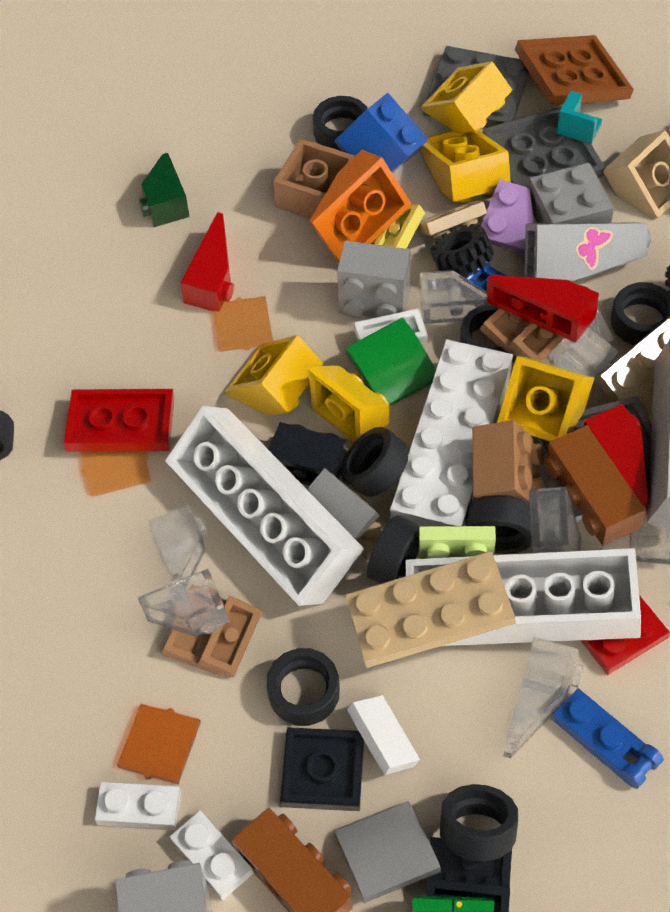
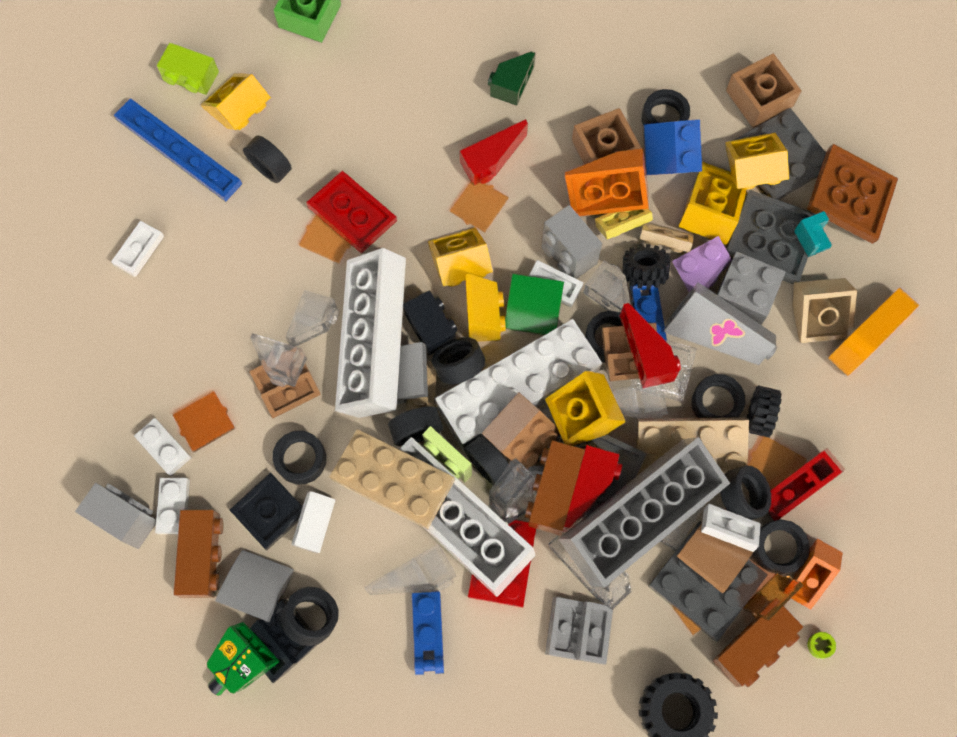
camera: 40 degrees right, 15 degrees up
(410, 45) = (763, 90): none -> medium nougat brick

